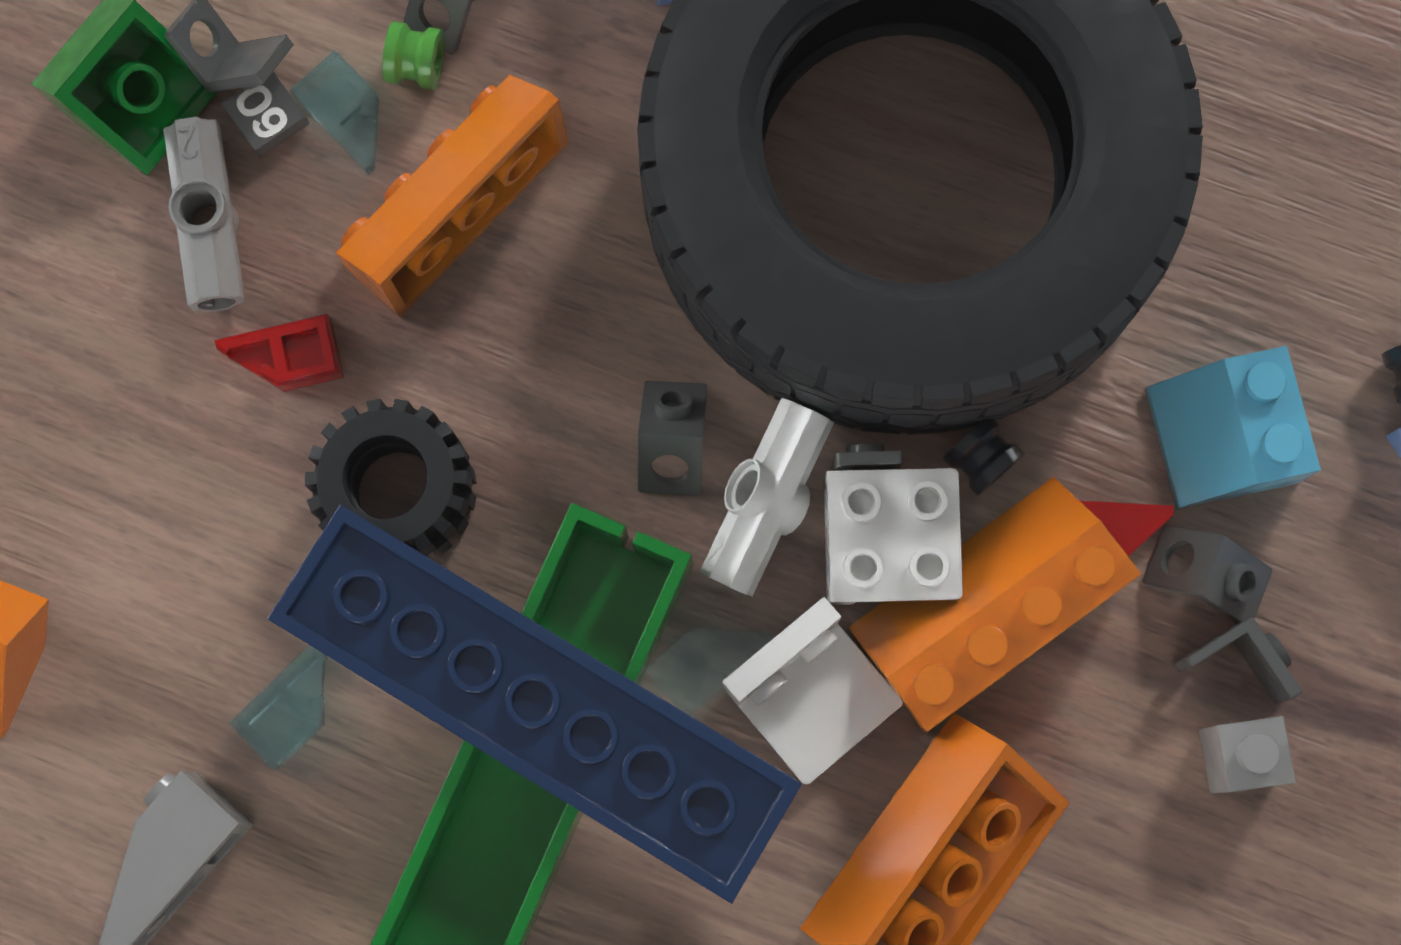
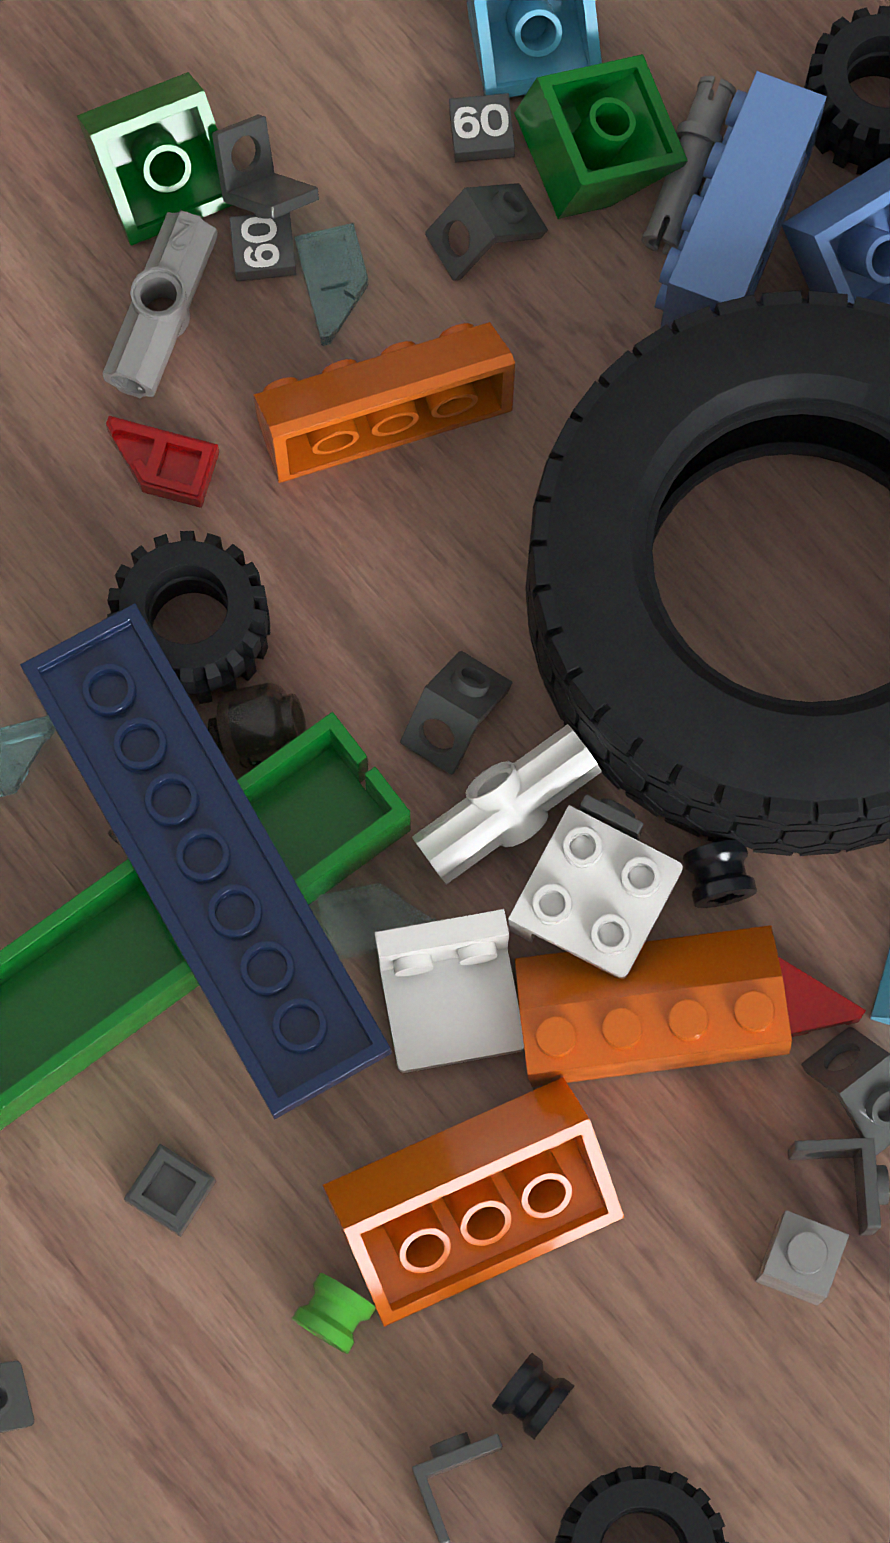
camera: 25 degrees right, 5 degrees down
(413, 55) = (418, 263): bright green wheel -> none
(506, 548) = (255, 723): none -> clear smoke head

